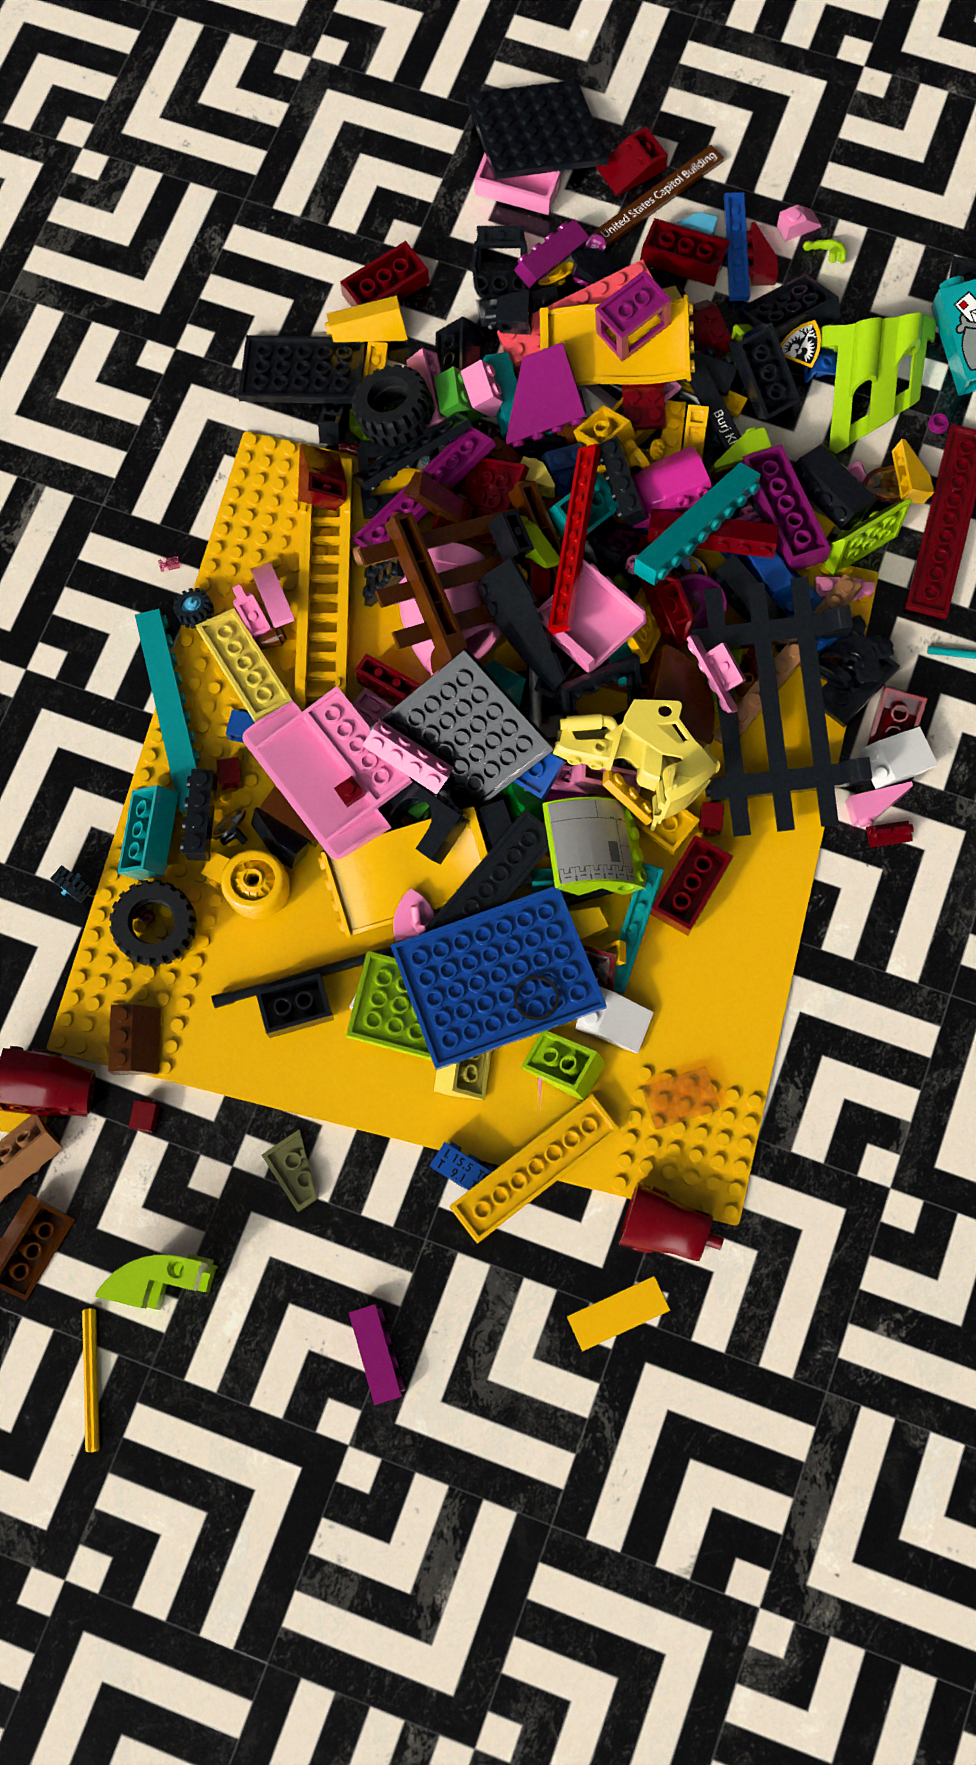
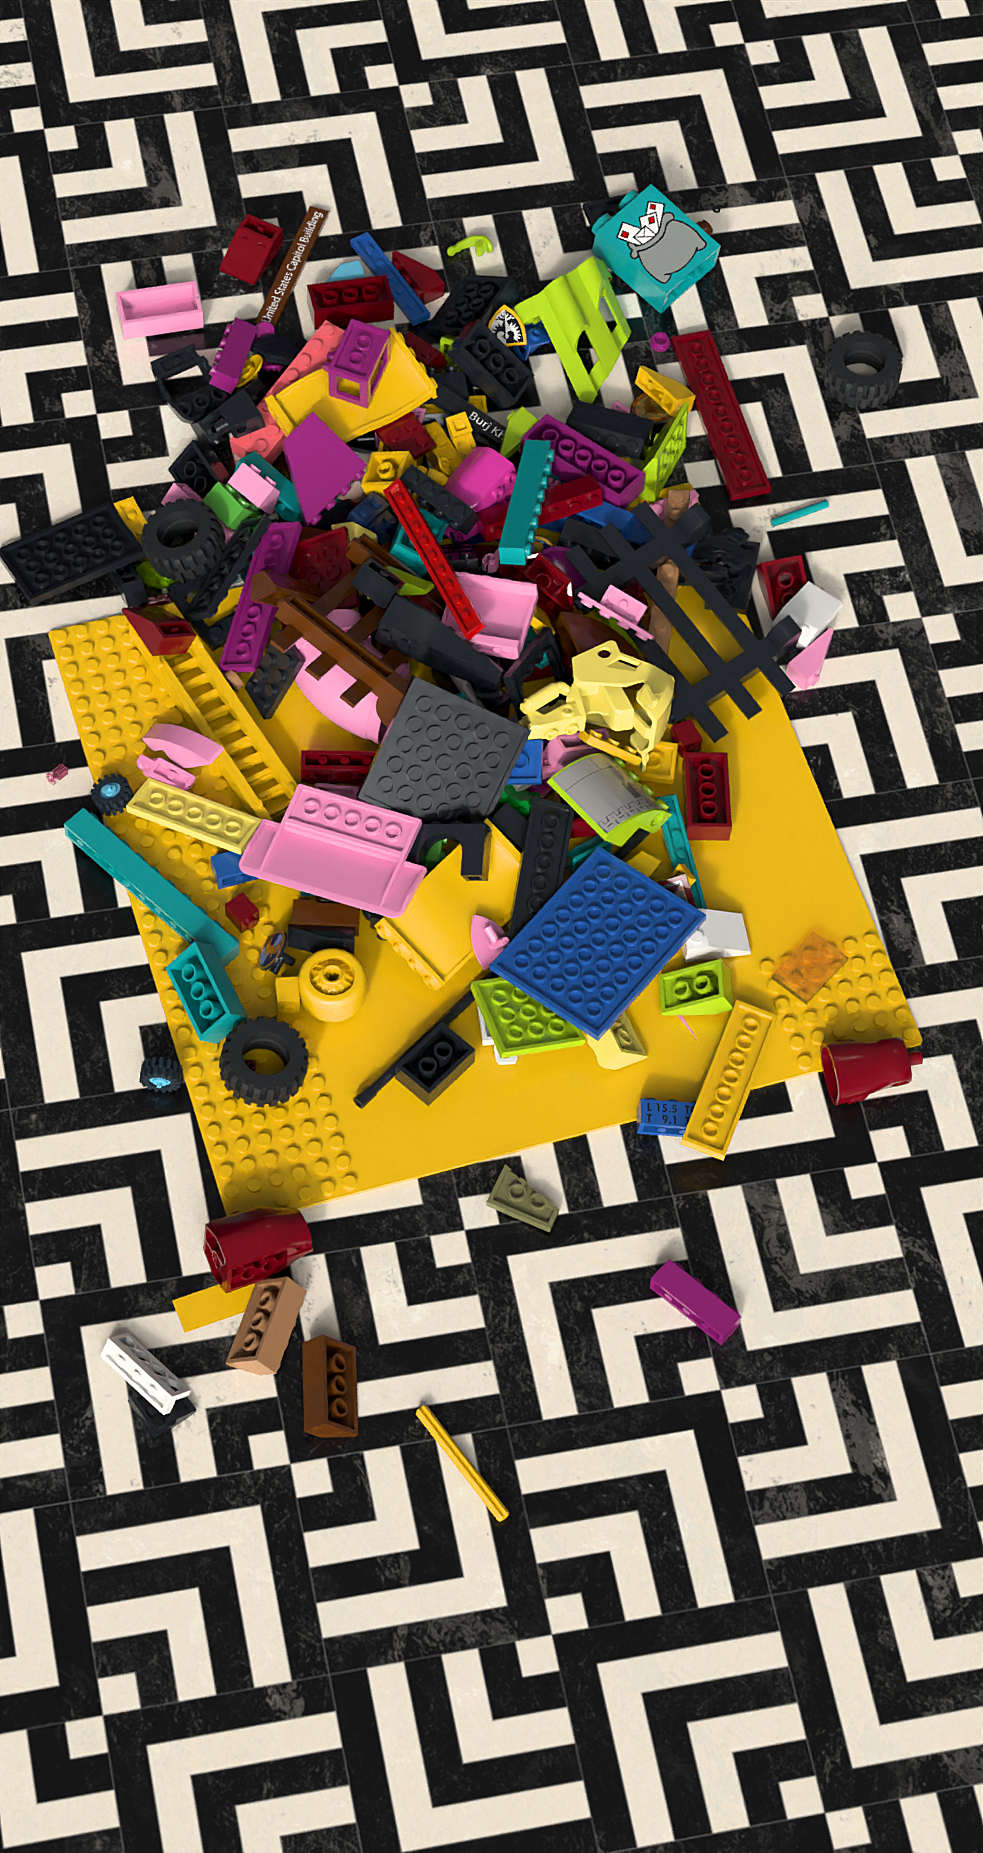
camera: 40 degrees left, 15 degrees down
(134, 1040) = (308, 1169): reddish brown slope -> none
(144, 1115) = (360, 1228): dark red brick -> none
(146, 1279) = (466, 1331): lime slope -> none
(200, 815) = (246, 950): black brick -> none
(272, 638) = (202, 783): reddish brown cone -> none
(349, 791) = (373, 856): dark red plate -> none
(368, 322) = (107, 485): yellow slope -> none
(392, 274) = (95, 447): dark red brick -> none
(407, 756) = (407, 801): bright pink brick -> none
(536, 129) = (148, 259): black plate -> none
(536, 978) = (643, 956): black piece -> none
(618, 1313) = (872, 1163): yellow sticker -> none
(797, 222) = (429, 236): bright pink slope -> none
(889, 833) = (839, 679): dark red hinge -> none

